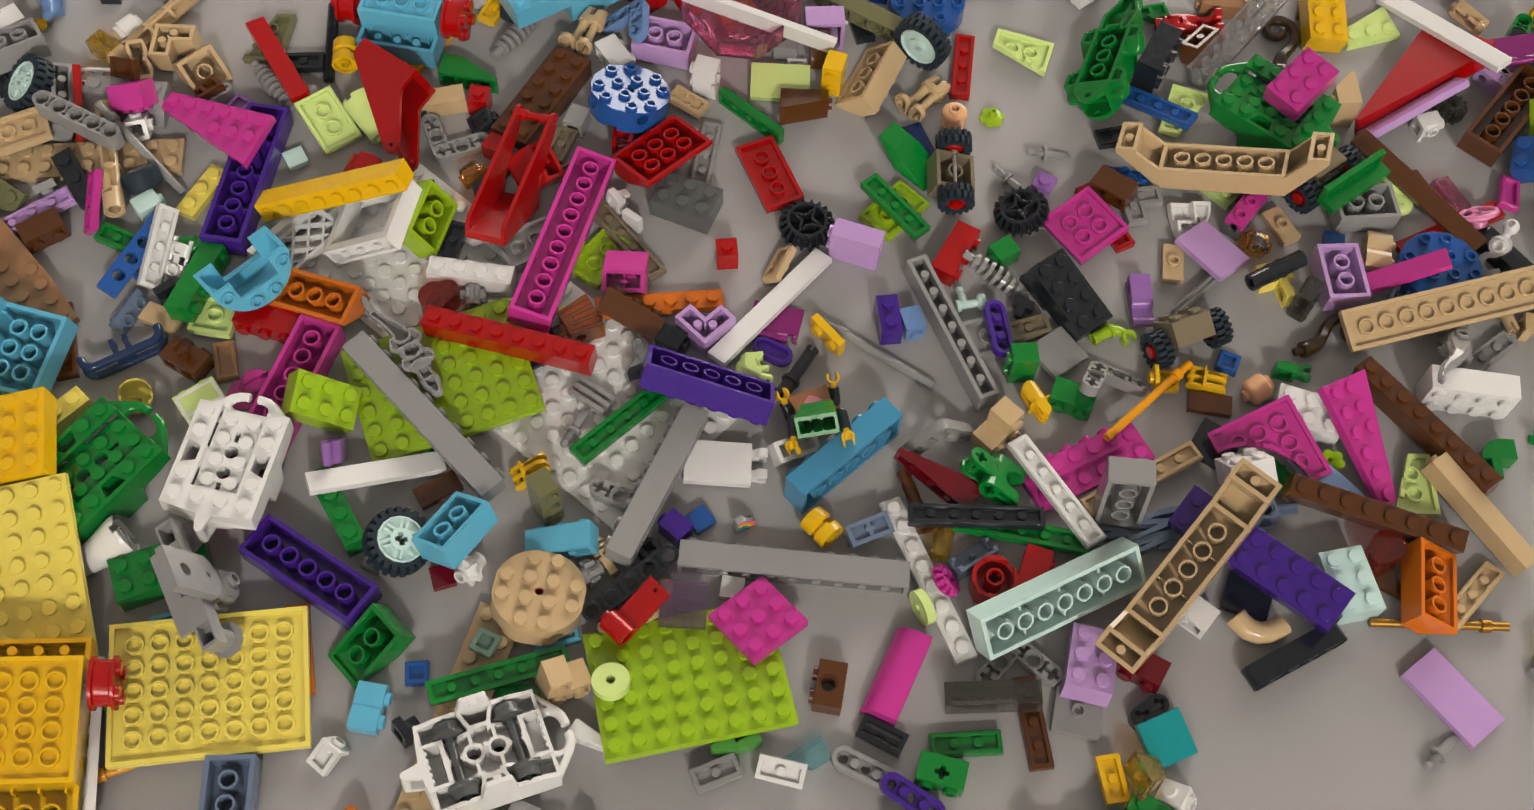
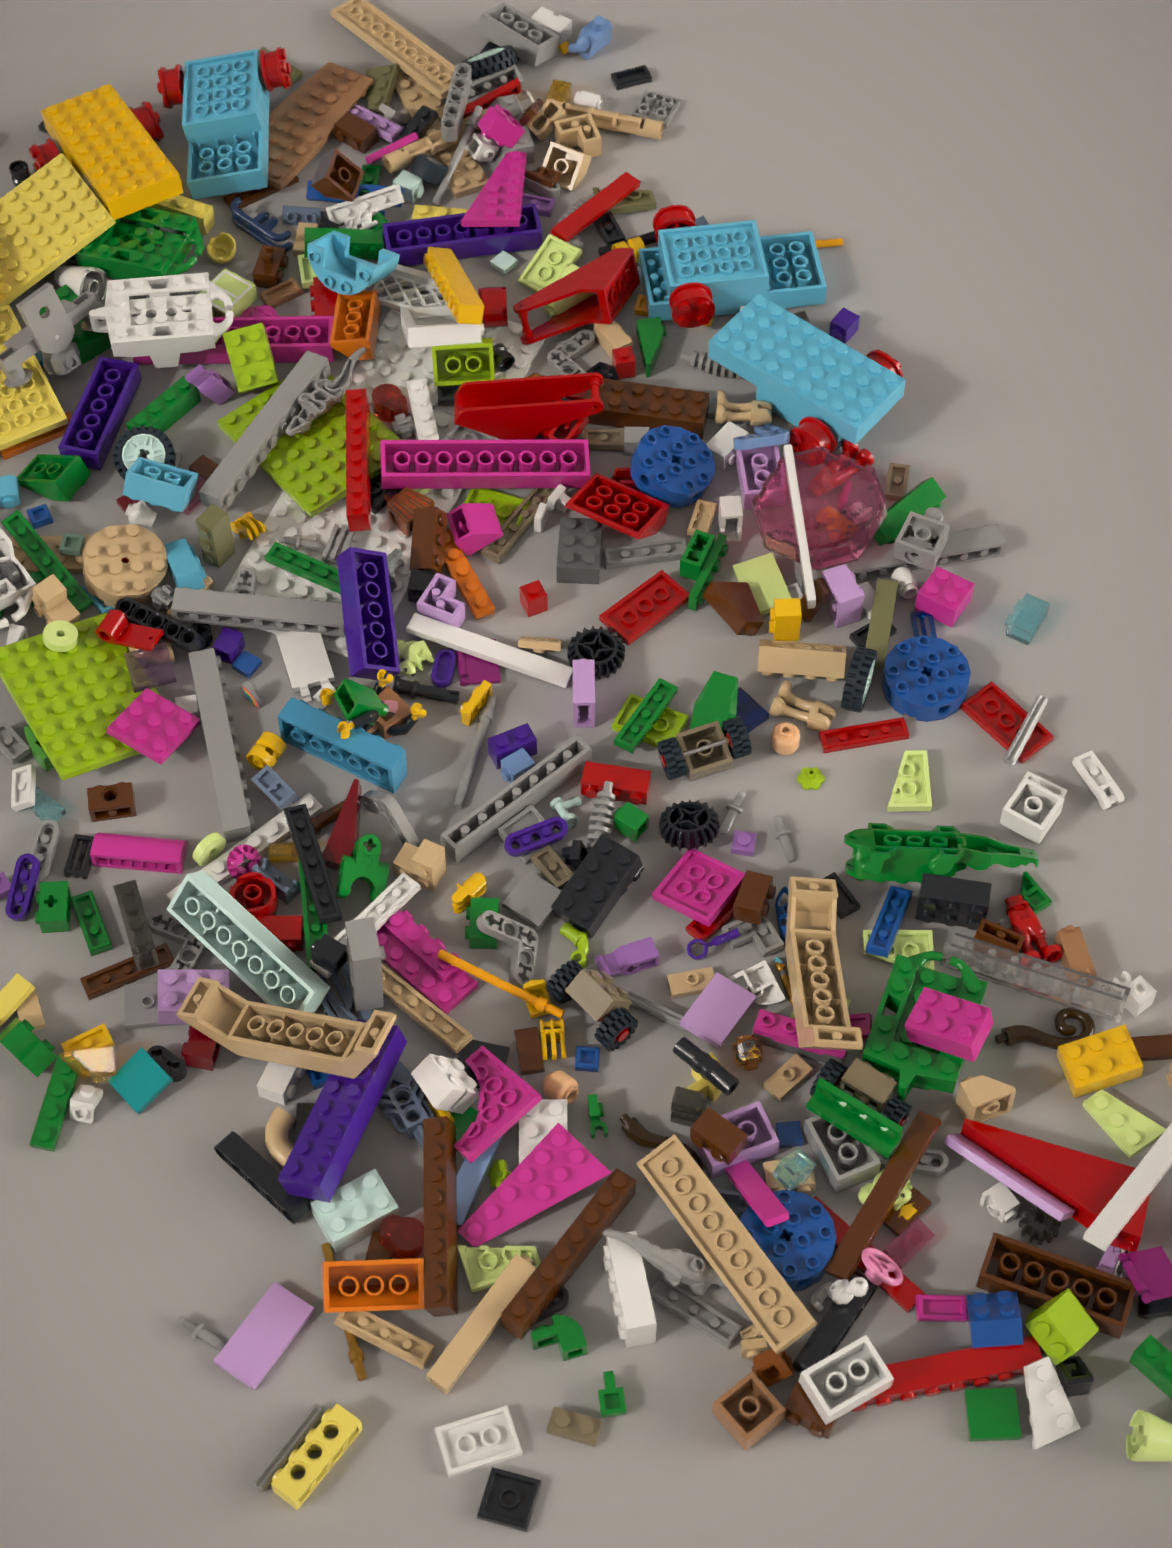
camera: 75 degrees right, 5 degrees down
(115, 254) = (337, 177): none -> reddish brown slope
(374, 473) = (197, 413): white tile -> none
(733, 114) = (696, 554): none -> green brick
(1021, 362) = (501, 864): green brick -> none
(1094, 523) = (329, 954): none -> black brick
(1143, 230) = (723, 938): none -> dark purple piece
(1174, 197) = (784, 976): none -> pearl gold piece
(1353, 279) = (718, 1136): none -> reddish brown brick
(1390, 238) = (794, 1169): none -> clear light blue brick

